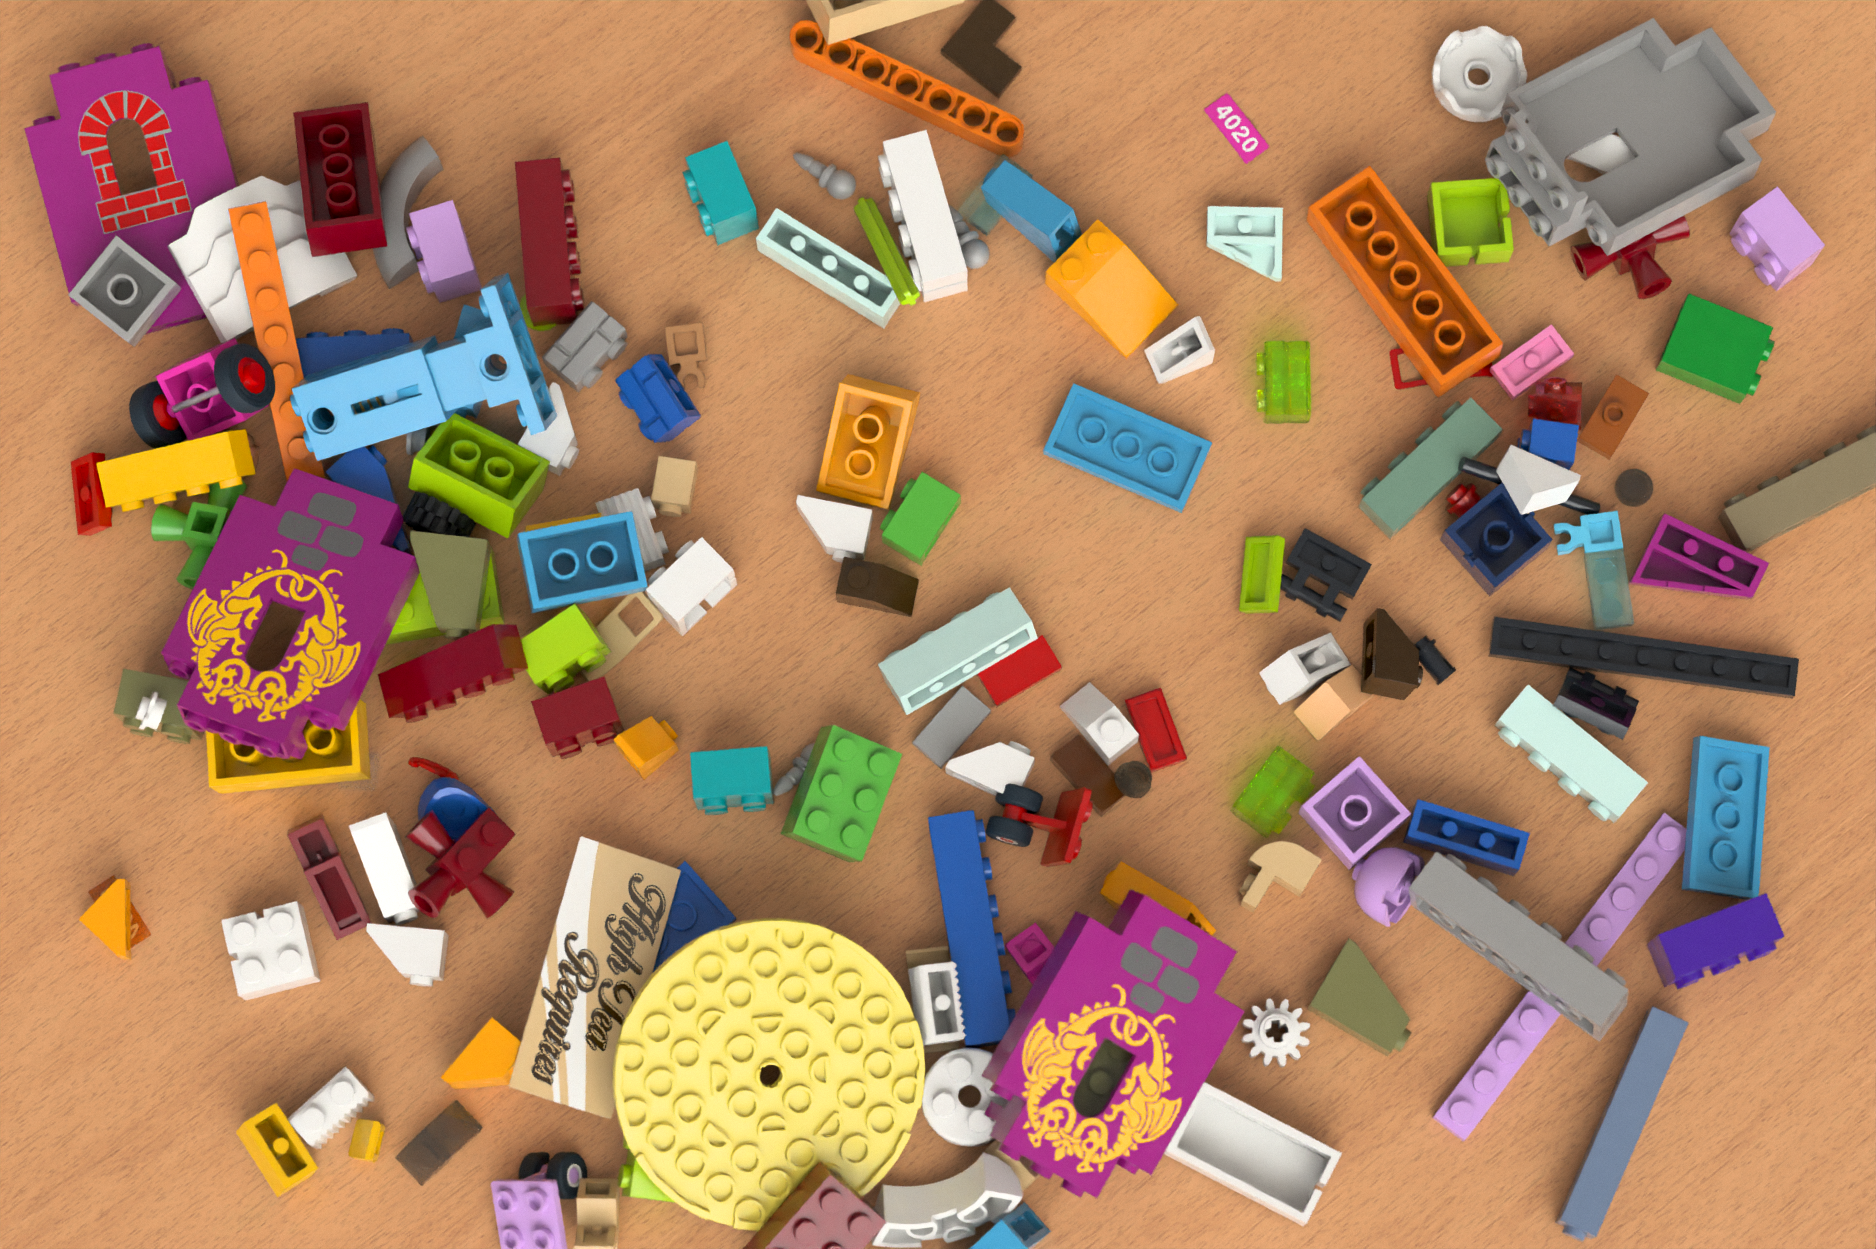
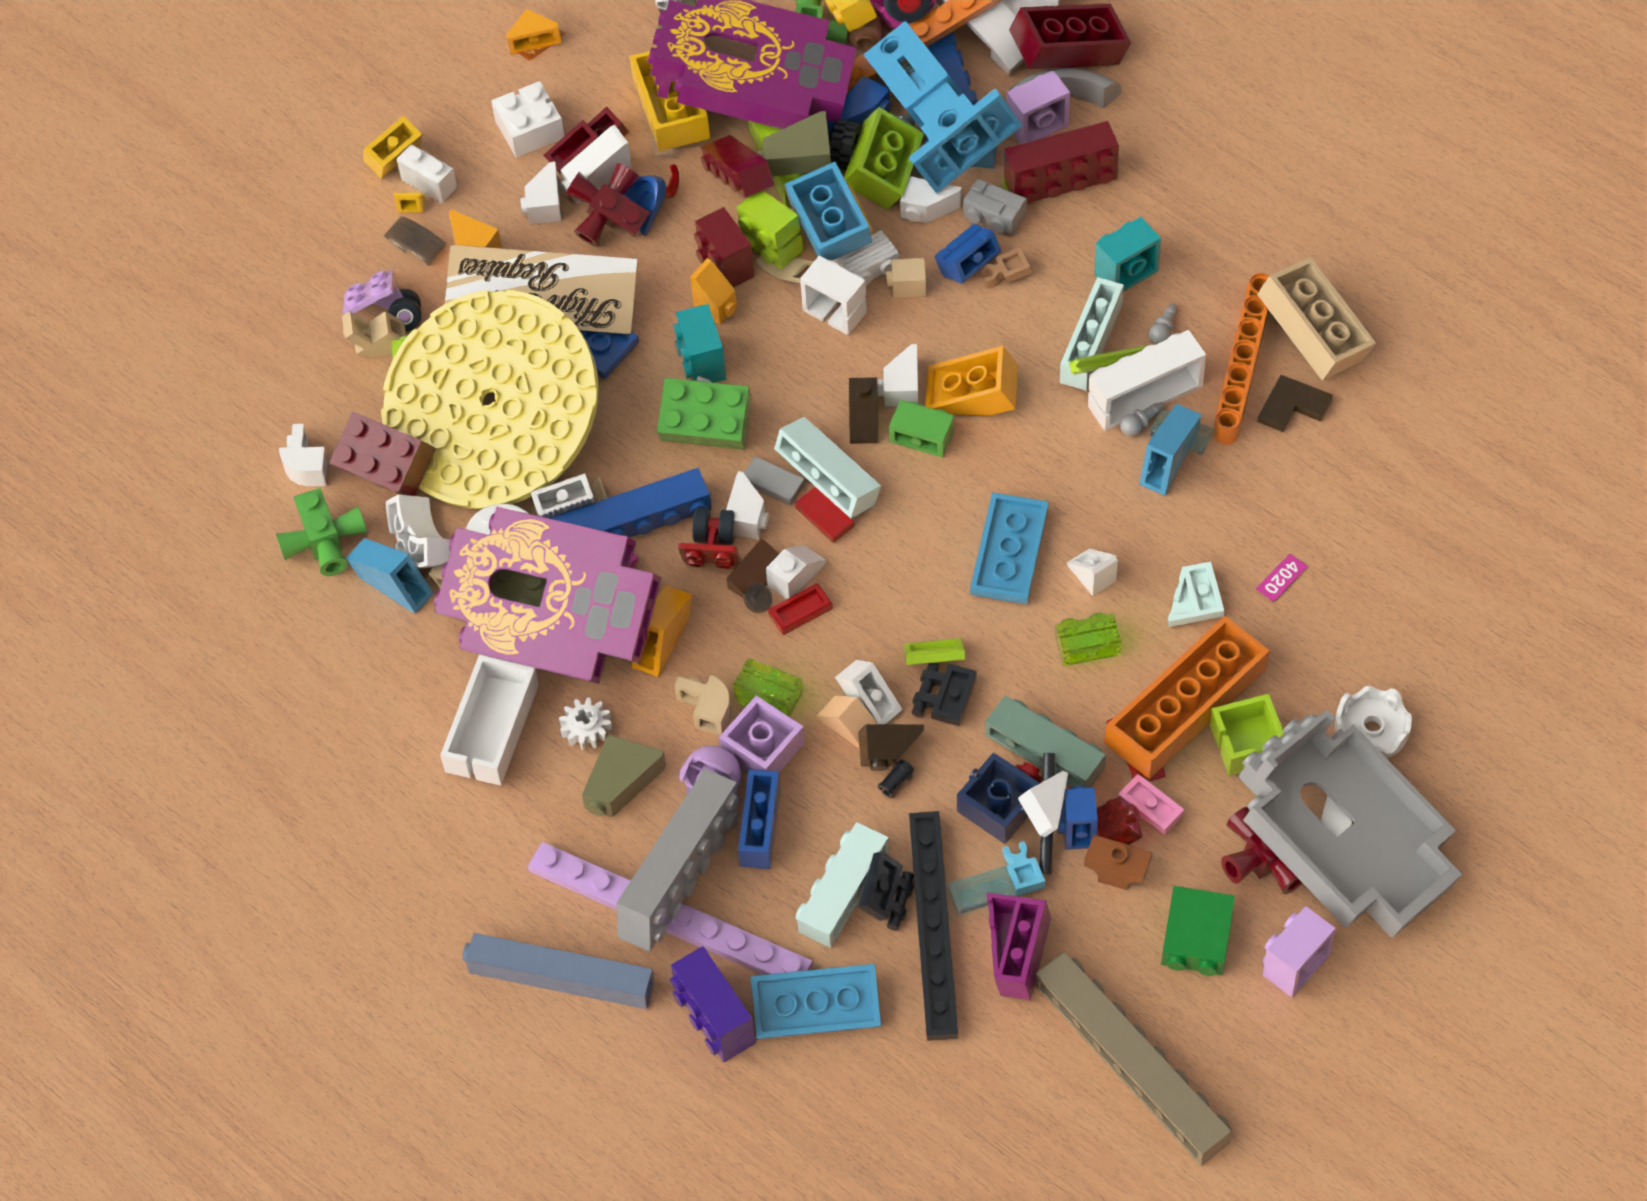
camera: 80 degrees right, 20 degrees down
(1110, 289) = (1129, 512): light orange slope -> none
(1633, 487) = (1069, 895): clear smoke plate -> none

